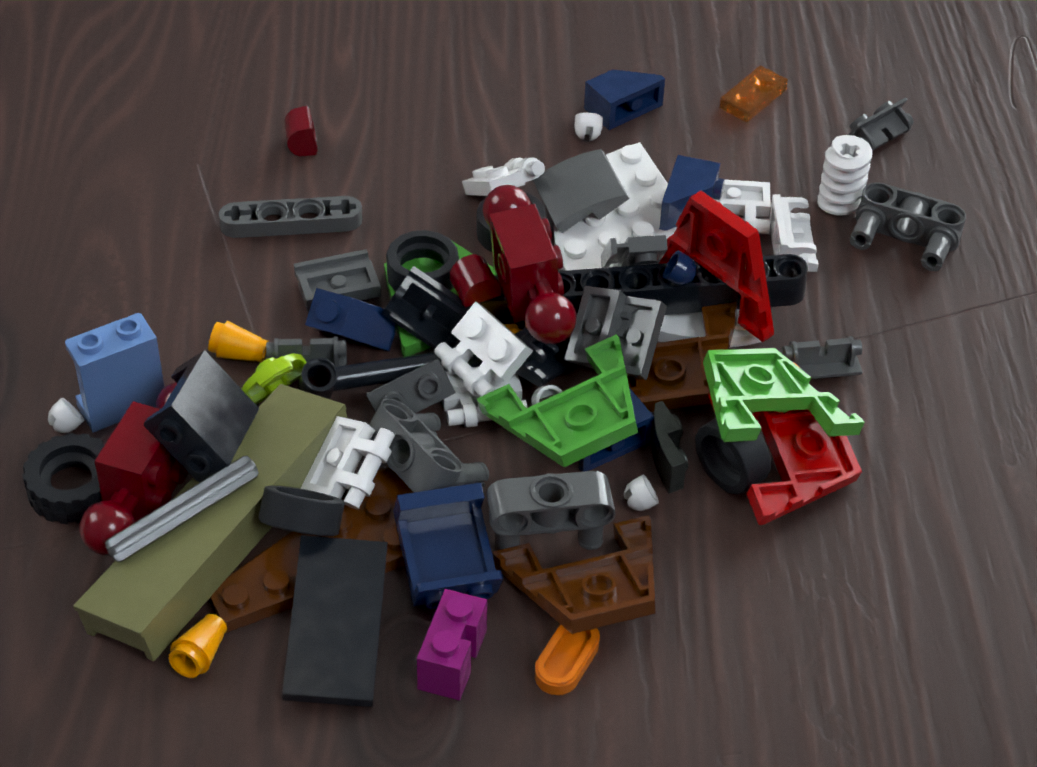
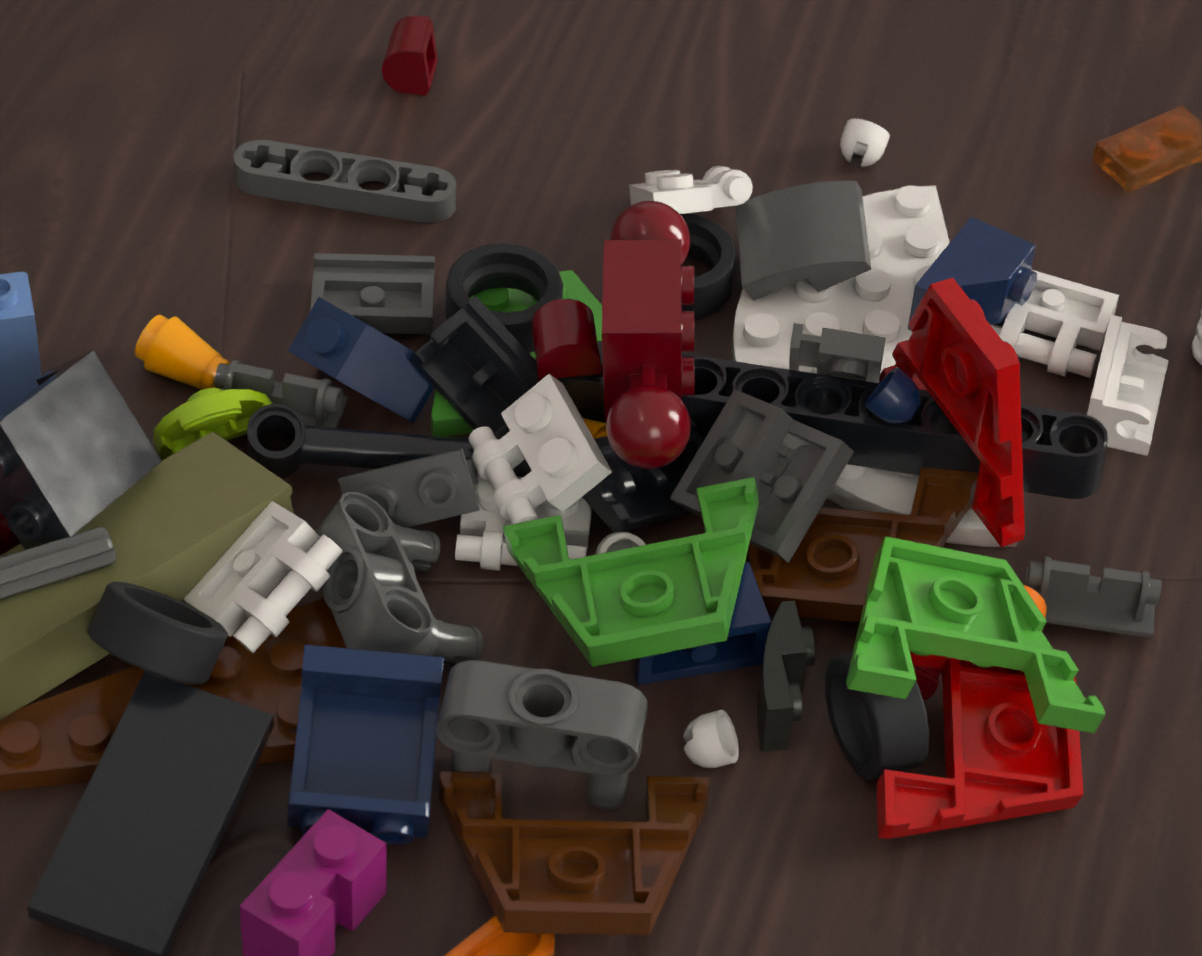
camera: 15 degrees right, 0 degrees up
(623, 95) = (937, 107): dark blue slope -> none

